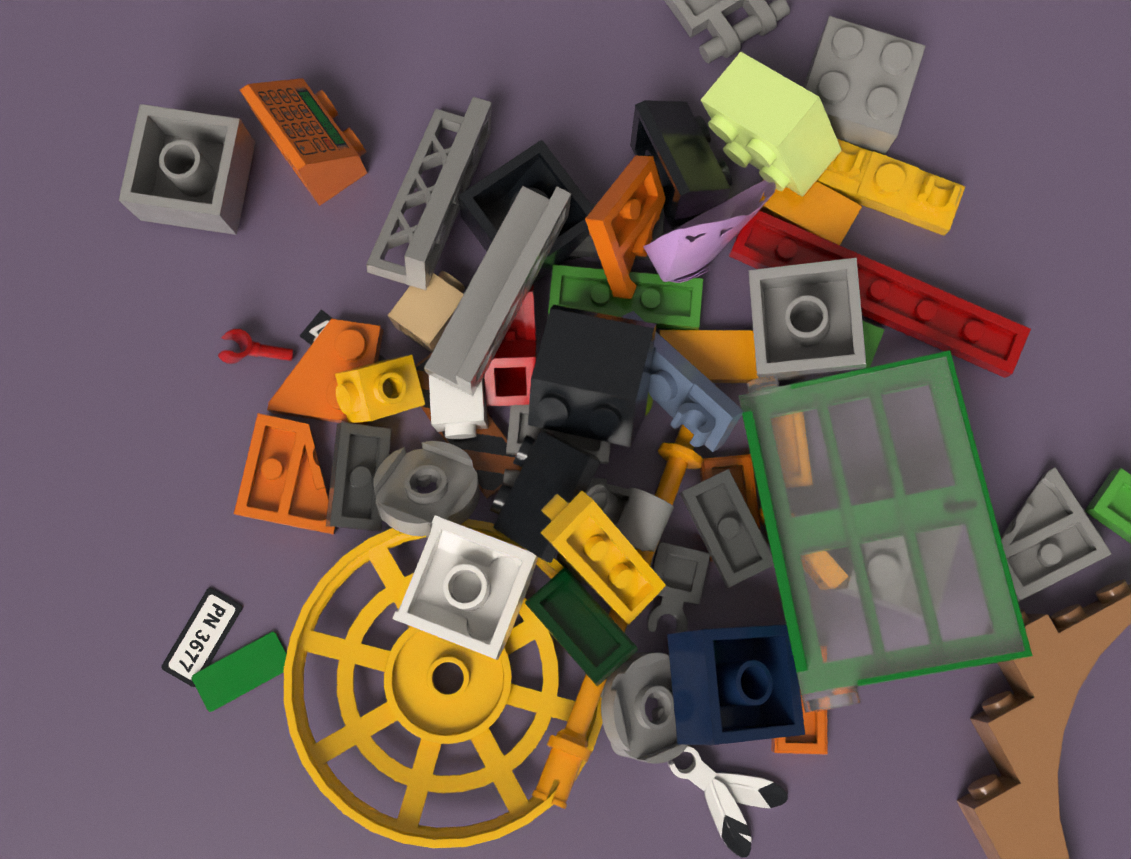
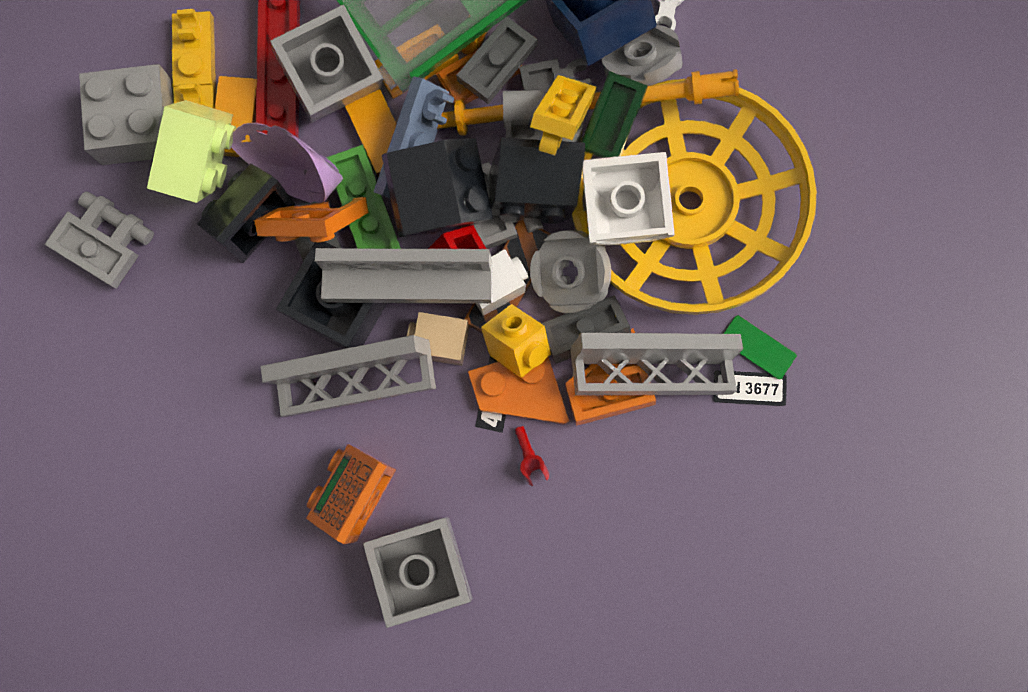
camera: 115 degrees left, 0 degrees up
(286, 542) = (659, 349): none -> light grey fence

